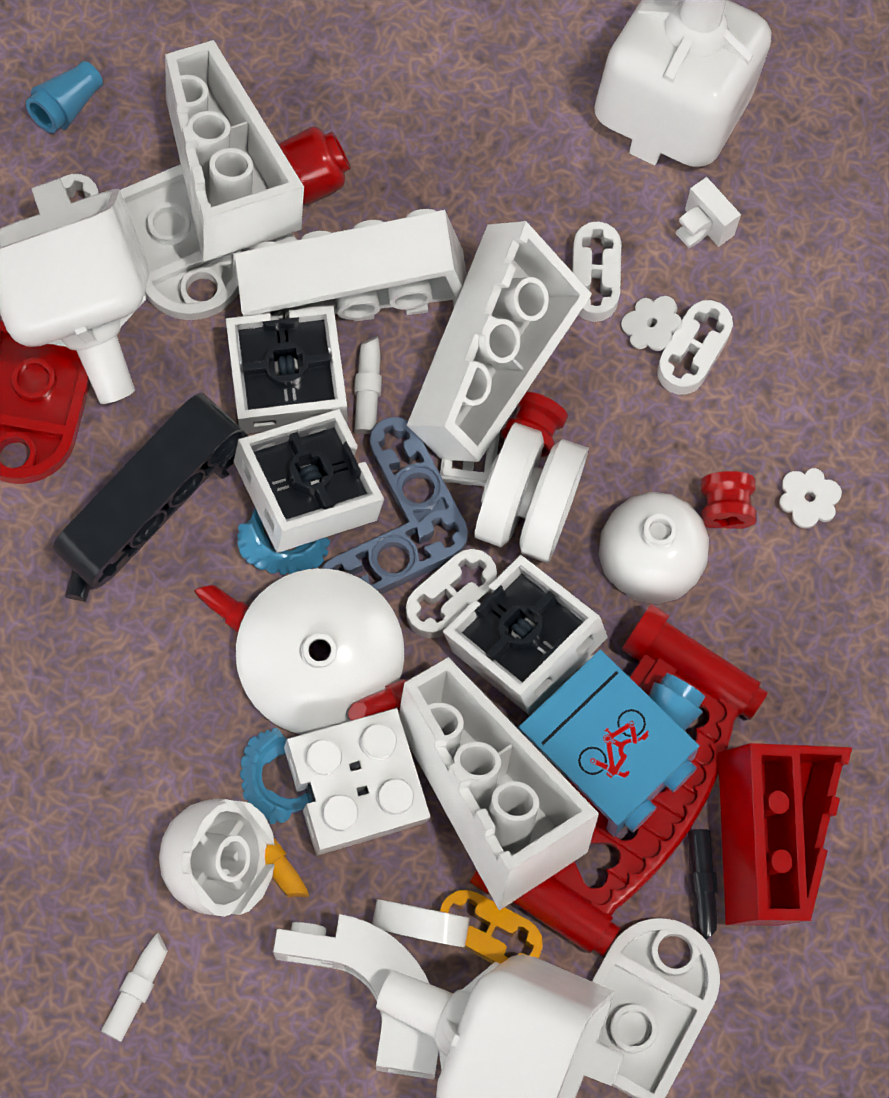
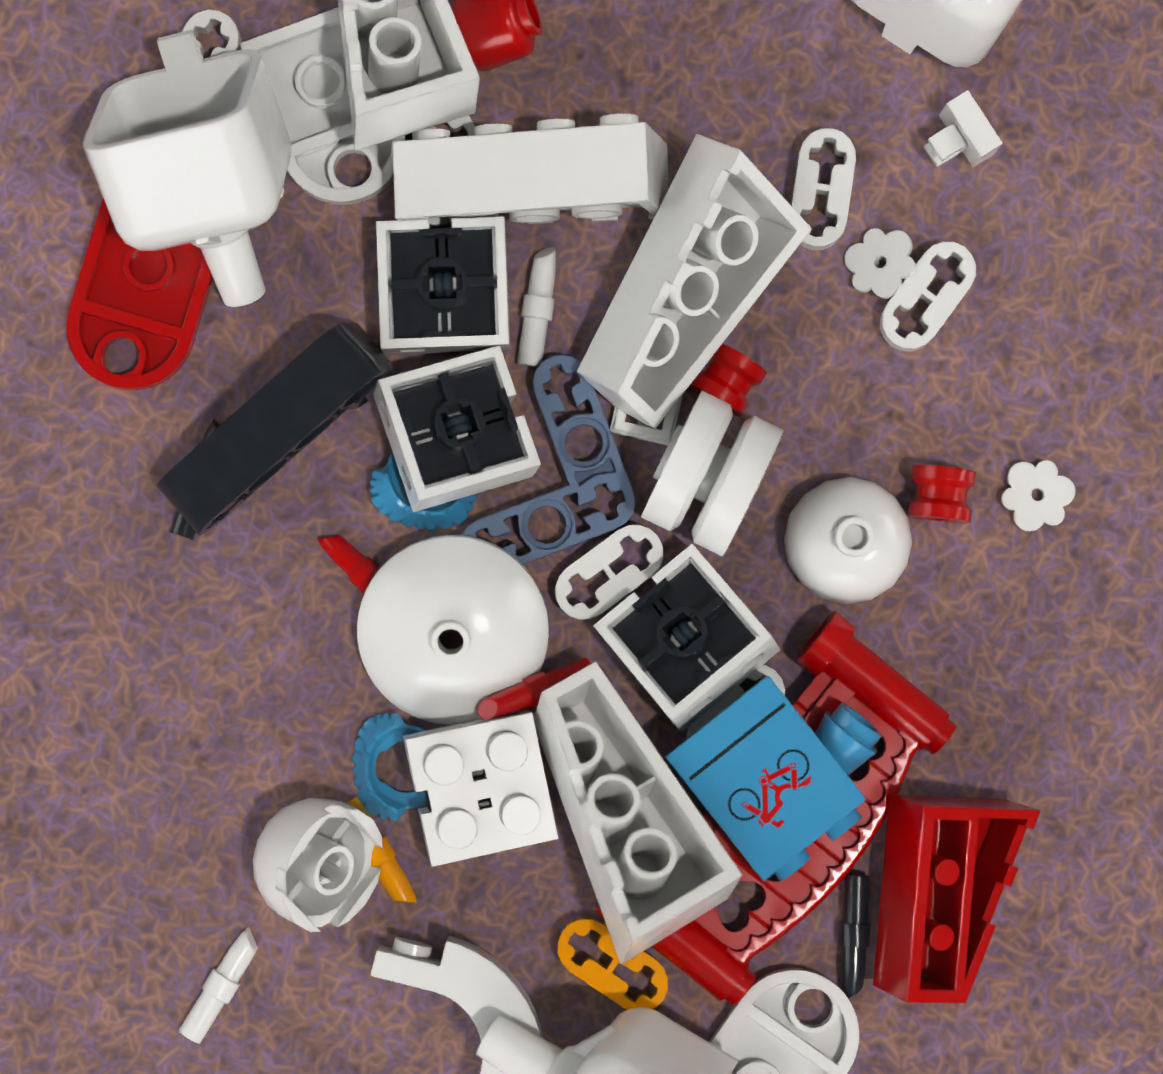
camera: 10 degrees right, 15 degrees up
(421, 923) = (535, 956): white beam -> none

